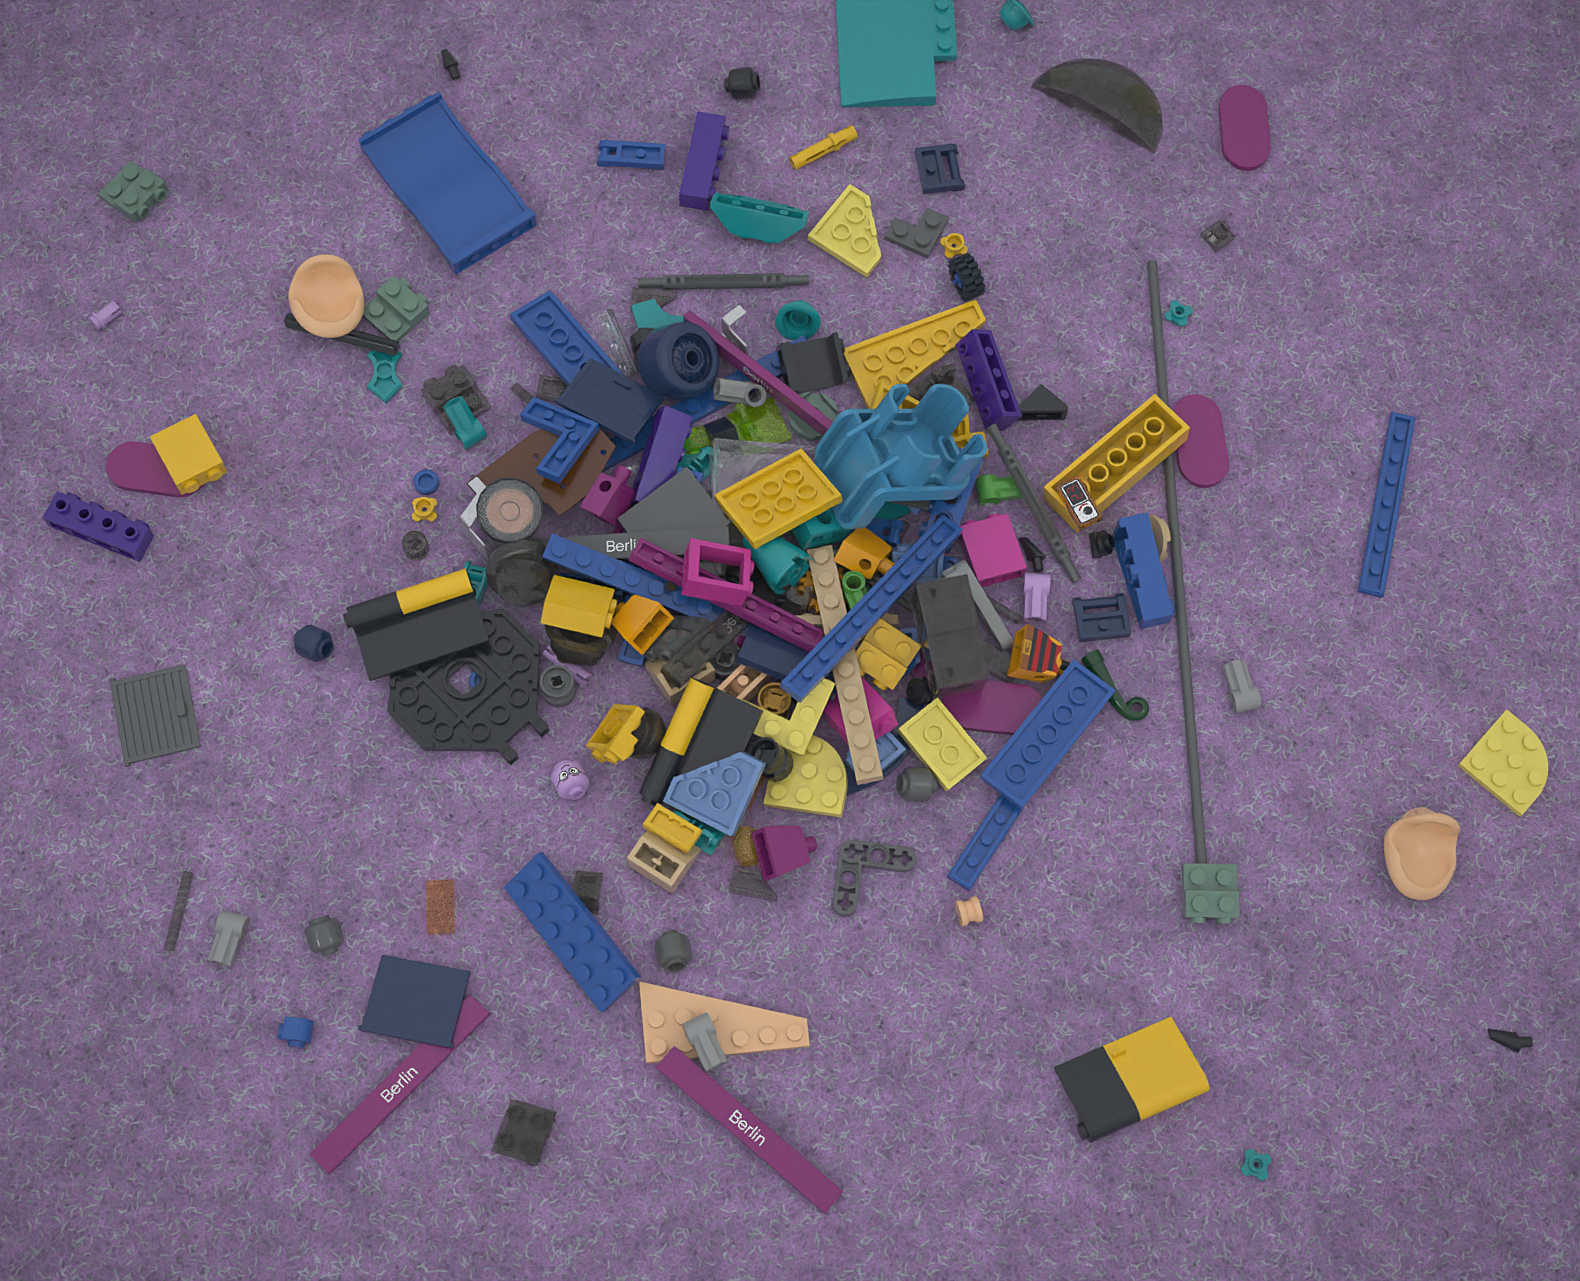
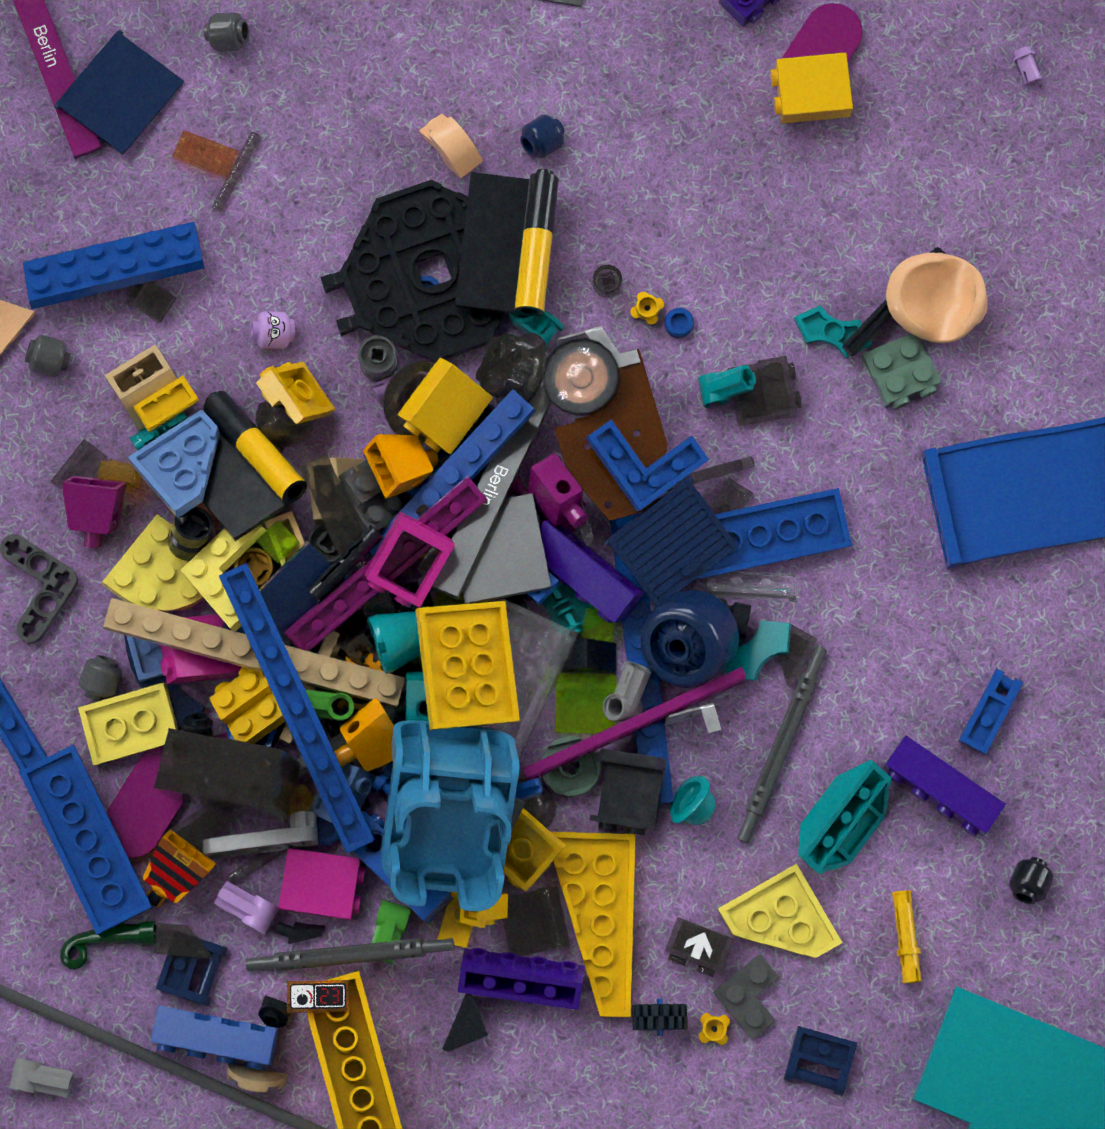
camera: 115 degrees right, 10 degrees up
(347, 708) = (452, 144): none -> light nougat brick
(444, 874) = (236, 172): none -> clear smoke bar
(711, 610) = (345, 563): none -> black pin
(746, 685) = (278, 541): none -> clear neon green tile
(901, 275) = (698, 946): none -> clear smoke brick
(1088, 630) = (179, 941): none -> clear smoke tile

